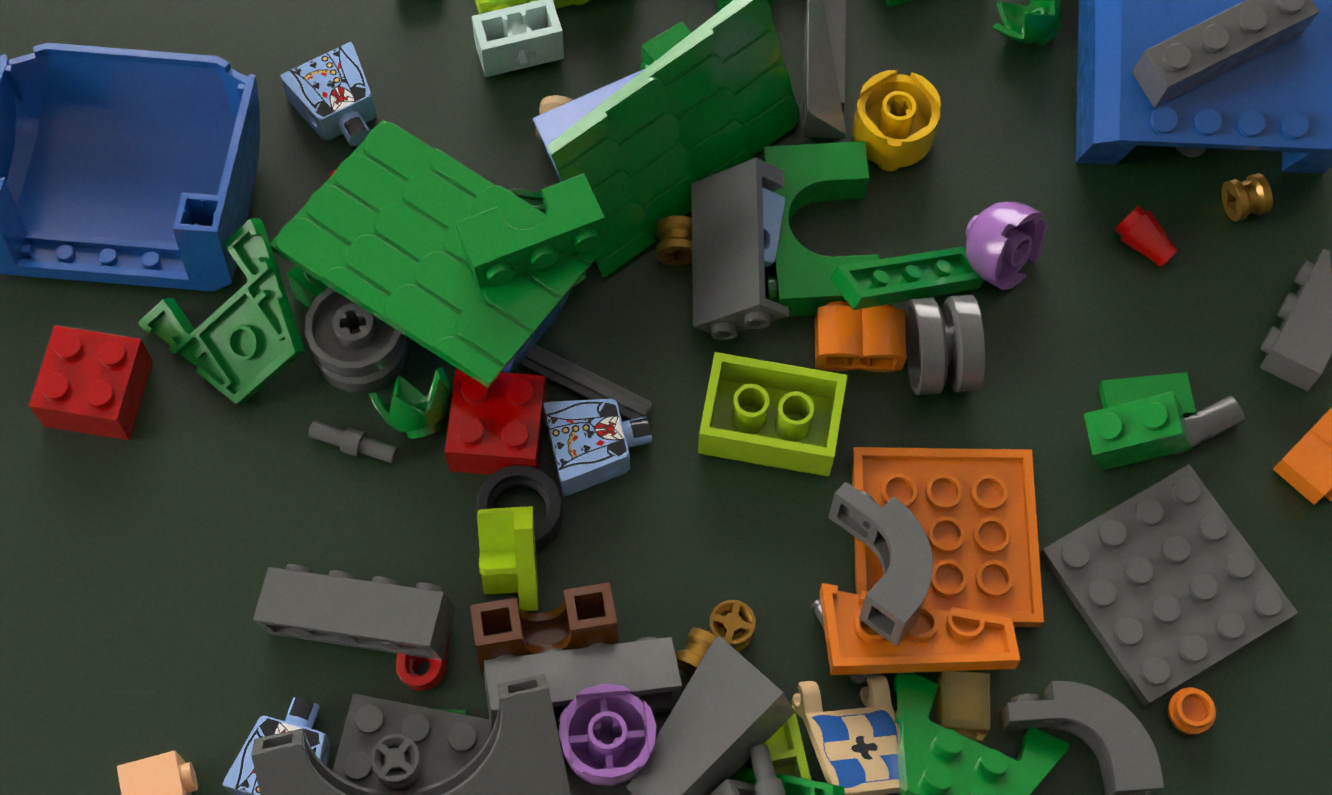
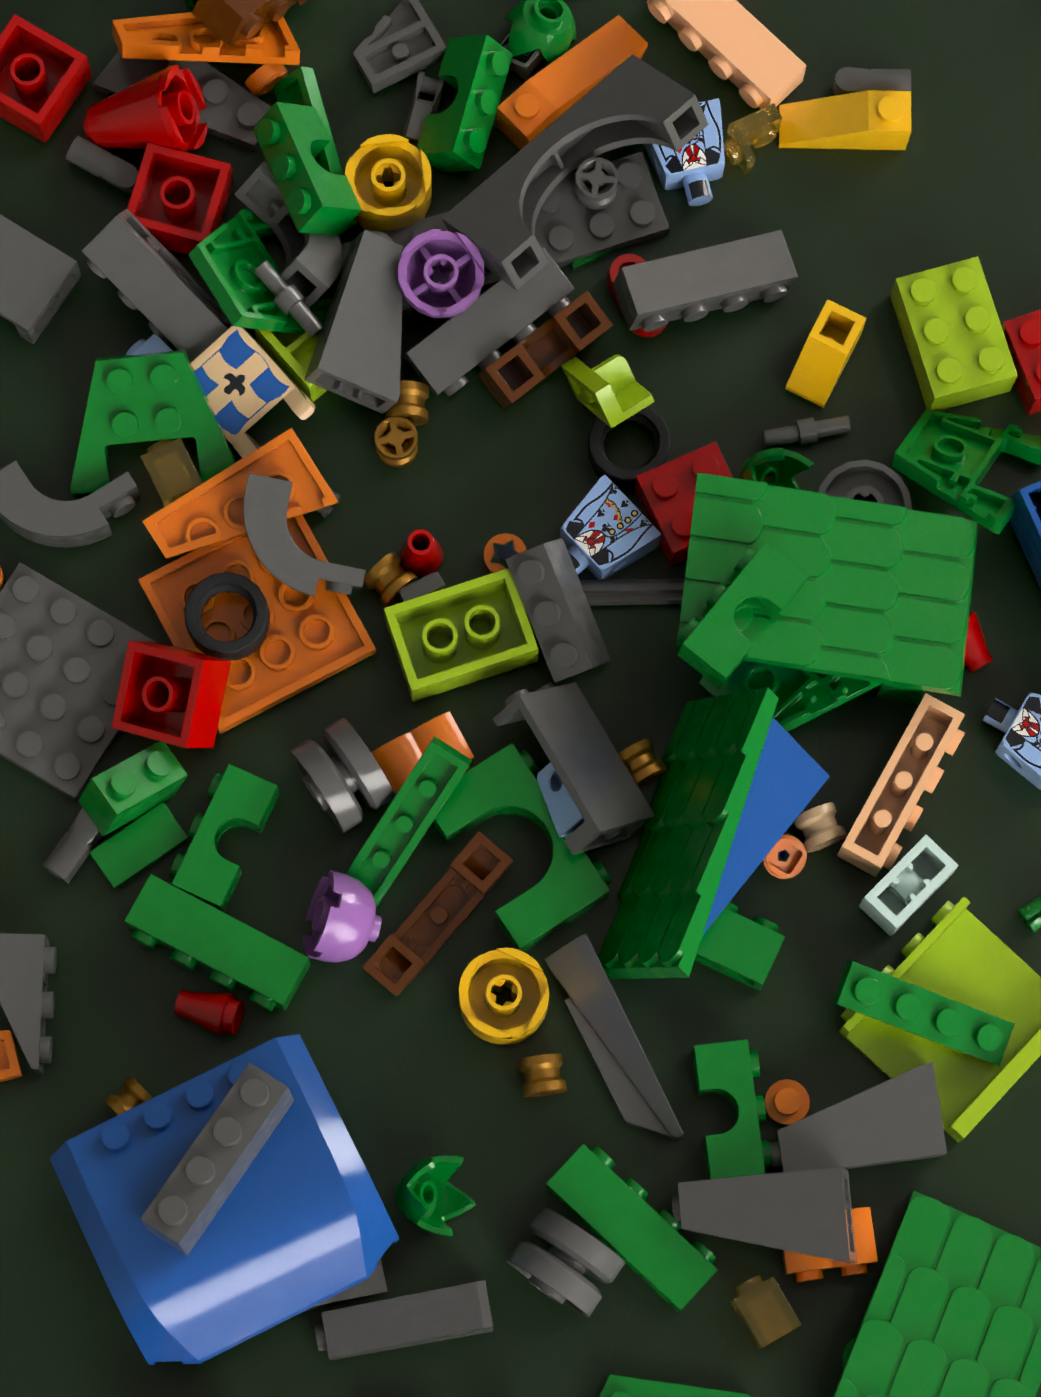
camera: 150 degrees right, 10 degrees up
(65, 731) = (859, 79): none -> dark grey bar
(115, 703) = (848, 121): none -> yellow slope
(166, 448) = (953, 334): none -> lime brick
(208, 744) = (755, 130): none -> clear yellow bracket
(289, 490) = (825, 353): none -> yellow slope
(481, 103) = (901, 784): none -> light nougat brick
(674, 385) = (558, 609): none -> dark grey brick
(689, 475) = (500, 548): none -> orange tile
(765, 512) = (424, 561): none -> red cone
(784, 475) = (423, 586): none -> dark grey tile
(806, 502) = (388, 578): none -> pearl gold wheel
(895, 53) = (542, 1075): none -> pearl gold wheel
(917, 215) = (438, 914): none -> reddish brown slope
(992, 503) = (227, 583): none -> black tyre
(1043, 384) = (236, 801): none -> green arch
(1067, 487) = (171, 694): none -> red brick
(1117, 282) = (216, 943): none -> green brick

